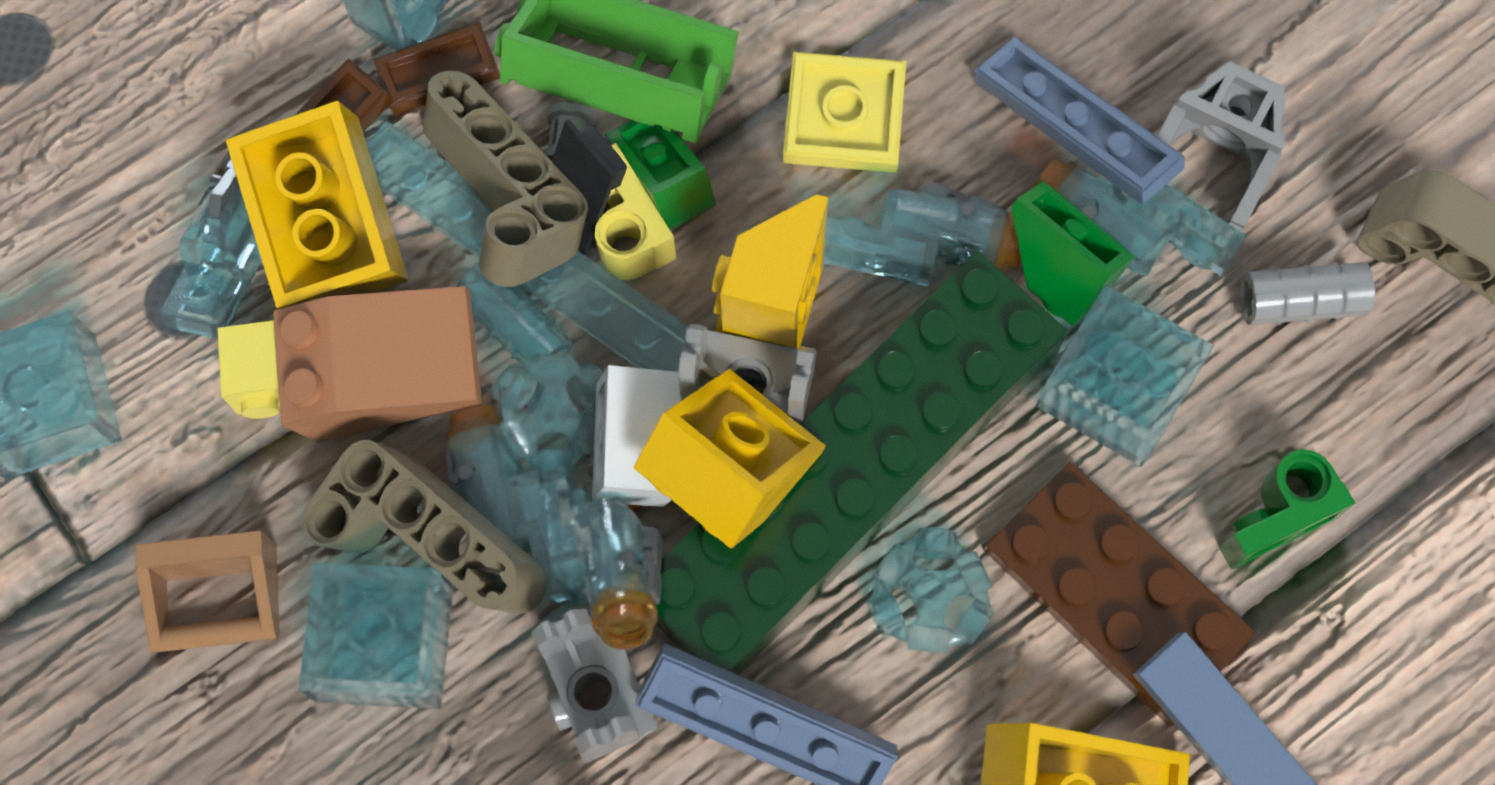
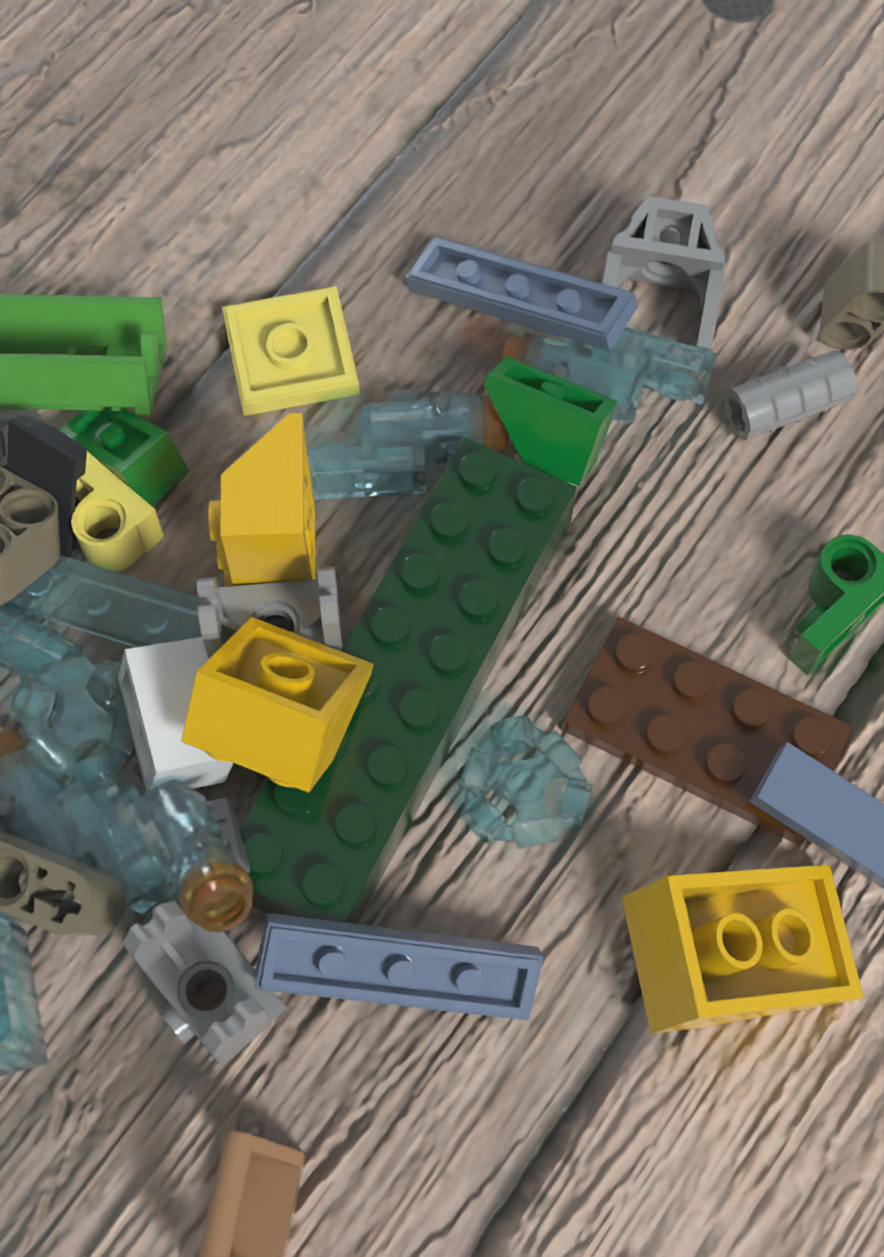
camera: 20 degrees left, 5 degrees down
(1124, 375) = (644, 517): clear light blue brick -> none

